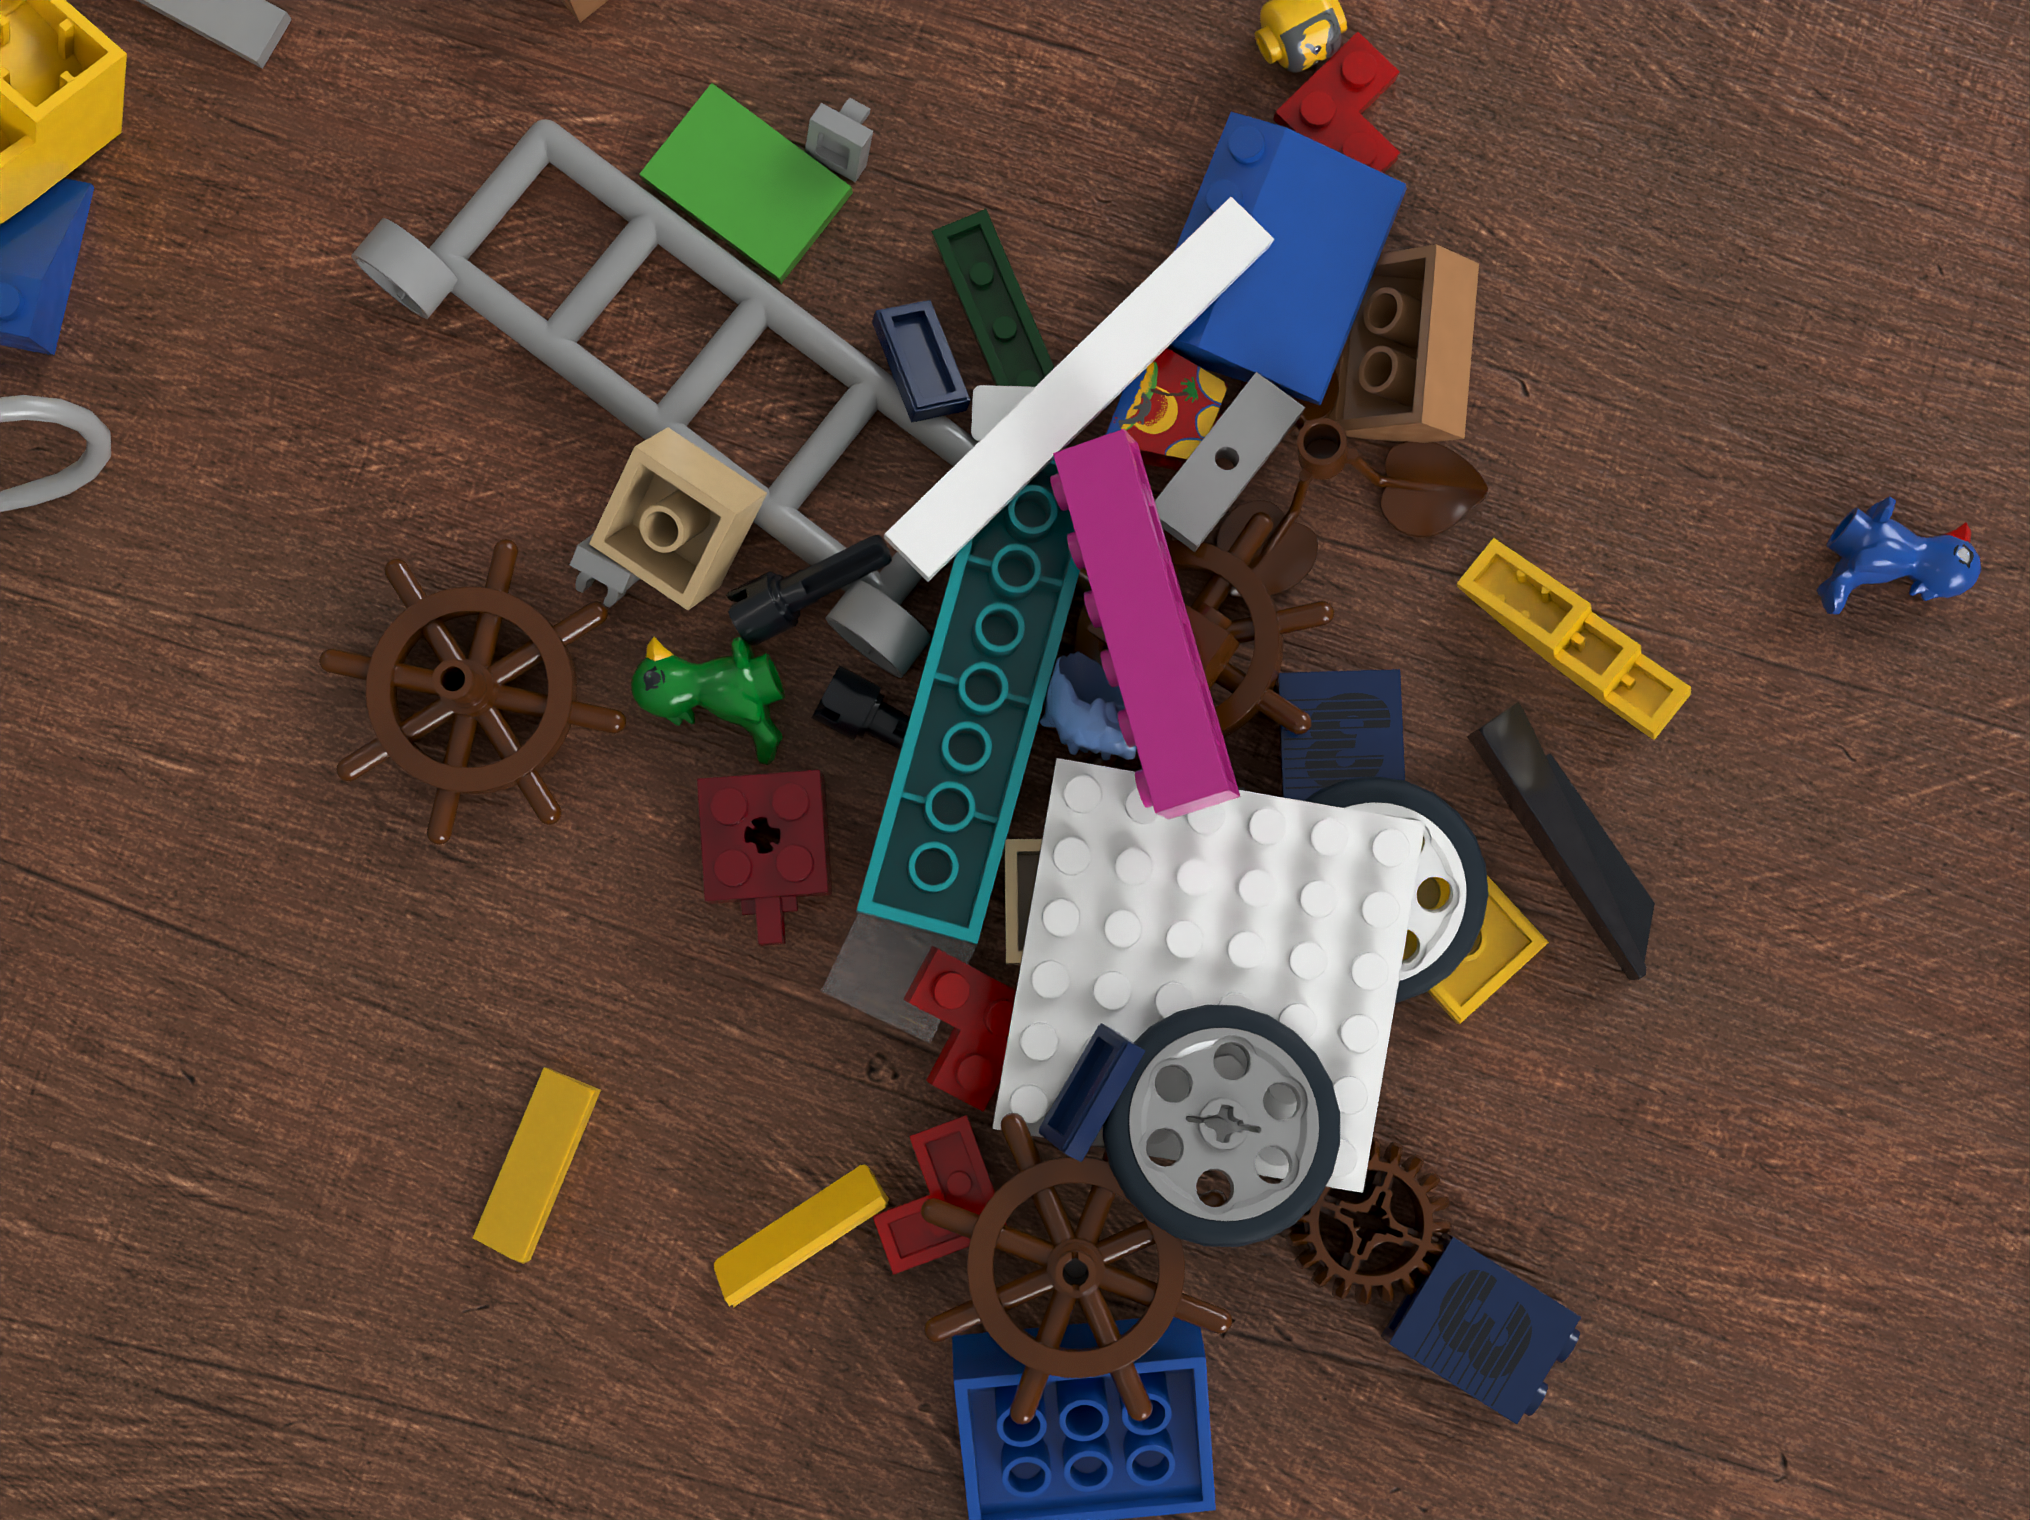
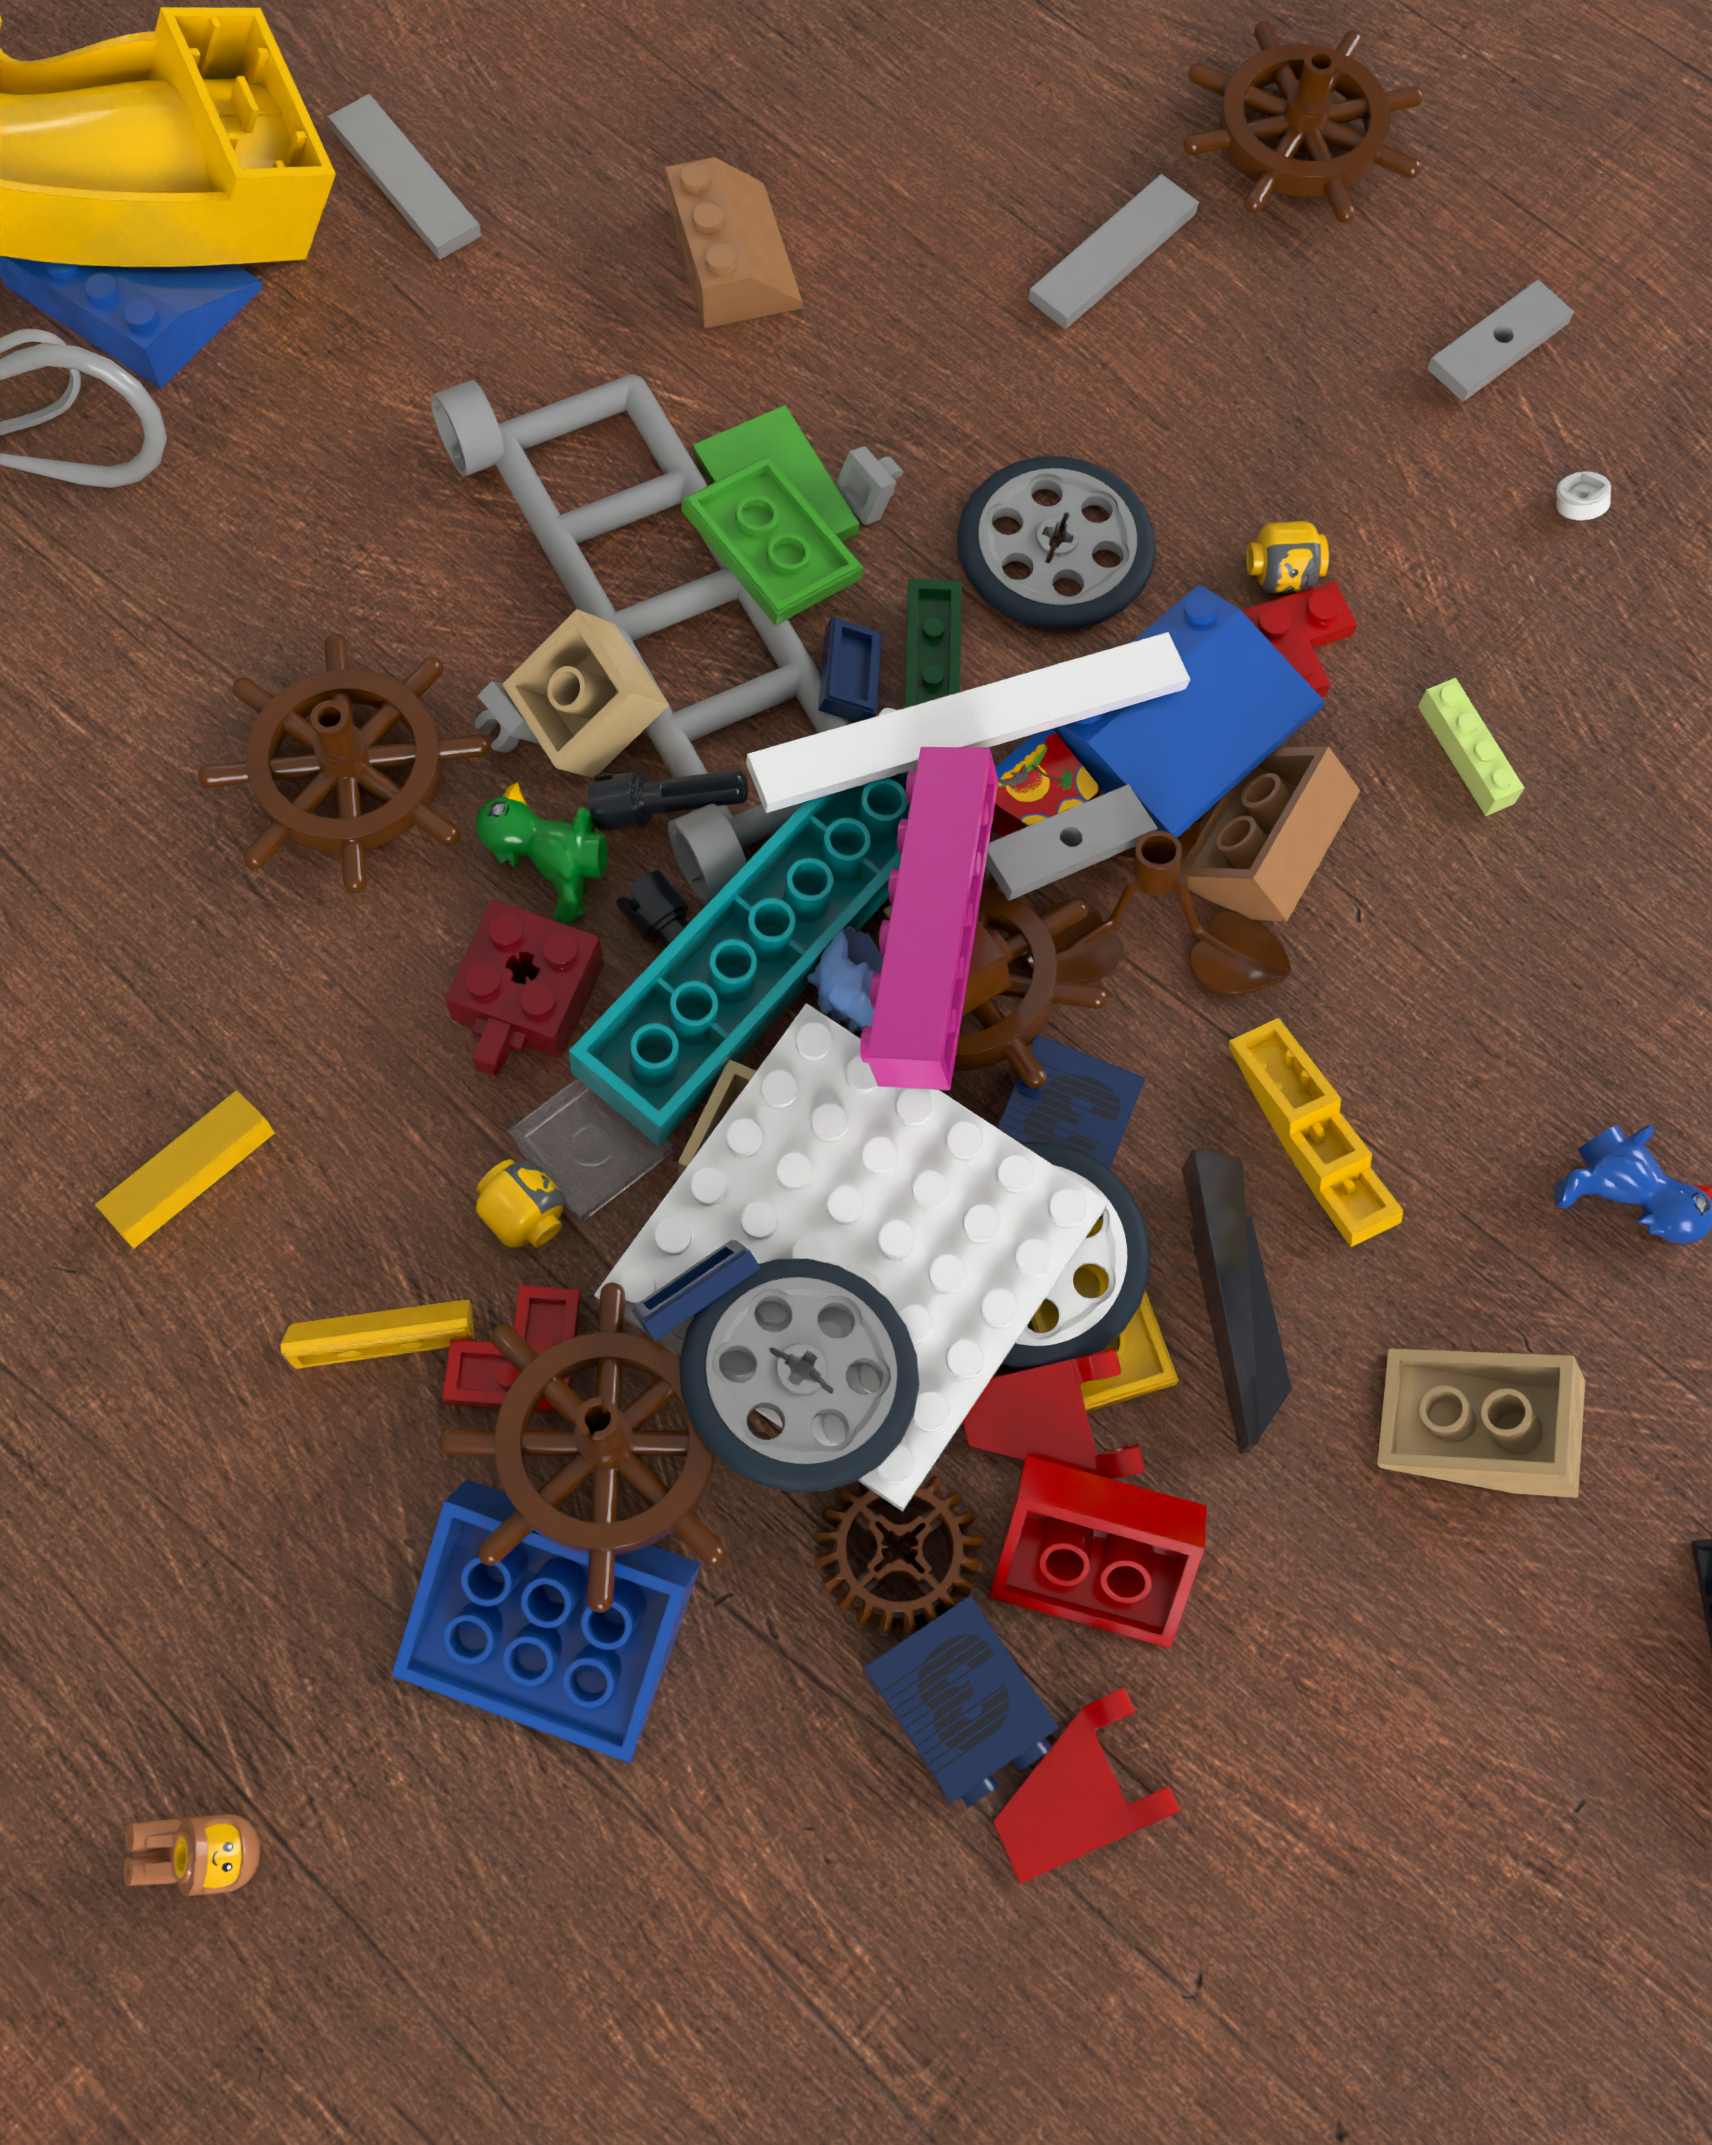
camera: 20 degrees right, 15 degrees down
(775, 251) = (772, 539): none -> bright green tile
(870, 1058) = (520, 1204): none -> yellow head
(981, 1020) = (629, 1195): red plate -> none
(1064, 191) = (1034, 599): none -> wedge
(1446, 1037) = (1045, 1417): none -> red flag
(1545, 1135) = (1099, 1552): none -> red slope
(1564, 157) = (1470, 747): none -> yellowish green piece
(1616, 1359) = (1074, 1799): none -> red flag
(1838, 853) = (1484, 1419): none -> tan slope

